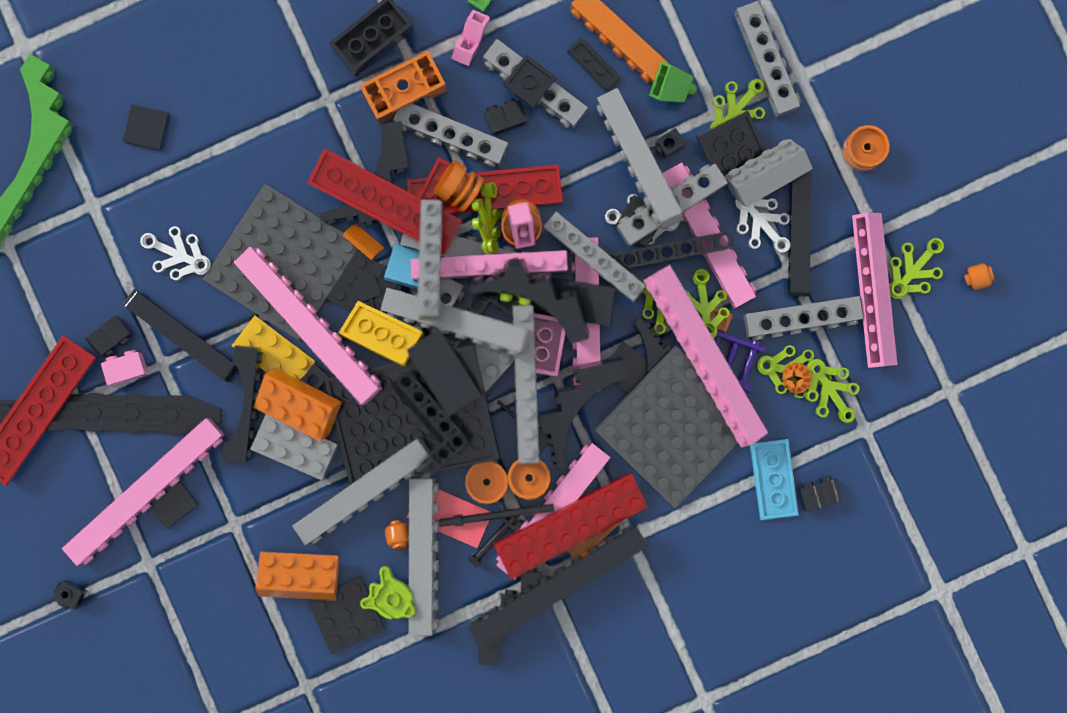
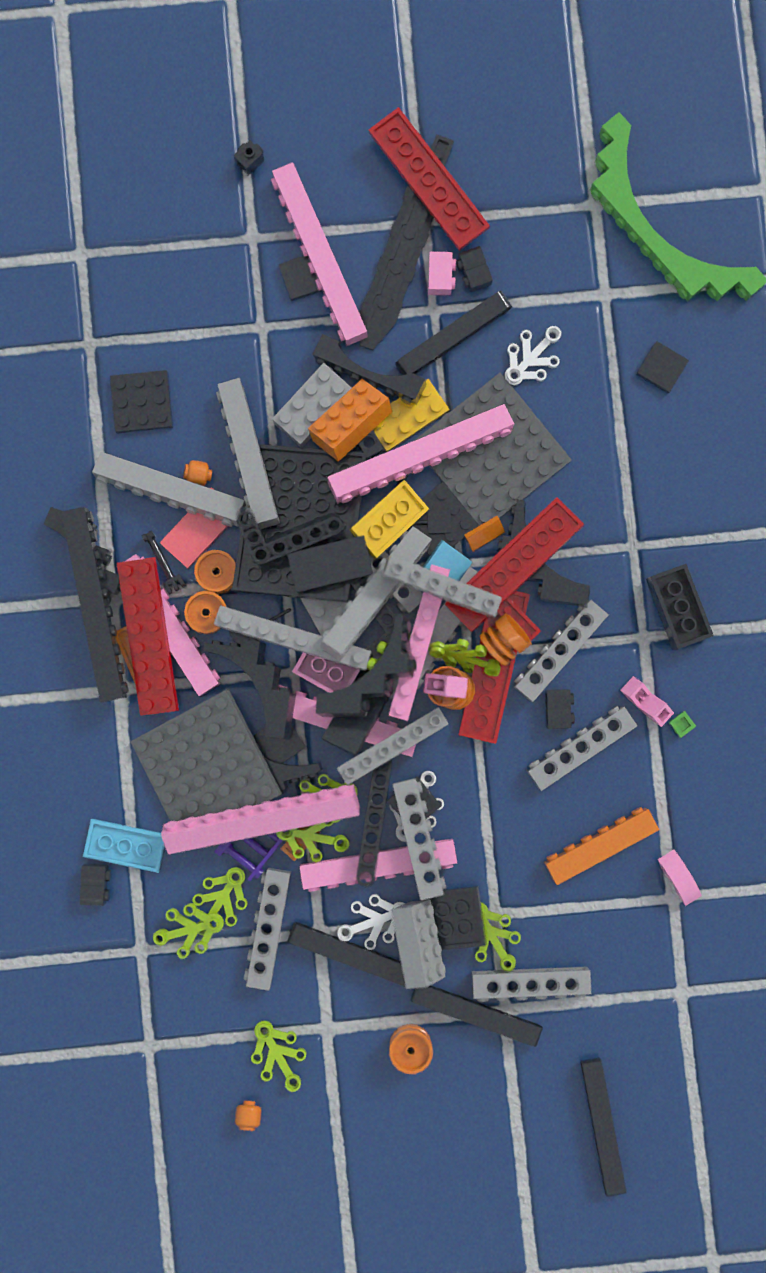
camera: 110 degrees right, 0 degrees up
(298, 576) = (191, 368): orange brick -> none
(390, 598) = (140, 445): lime tile -> none
(422, 80) = (620, 640): orange plate -> none
(460, 520) = (190, 535): black bar -> none
(529, 81) = (584, 743): black tile -> none
(593, 64) = (582, 811): black tile -> none
(640, 159) = (472, 823): light grey brick -> none
(672, 84) = (536, 880): bright green torso -> none
(673, 136) = (482, 866): black brick -> none
(801, 371) = (216, 907): orange gear -> none
(813, 97) = (477, 1014): none -> black beam
(874, 290) = (270, 1007): bright pink brick -> none

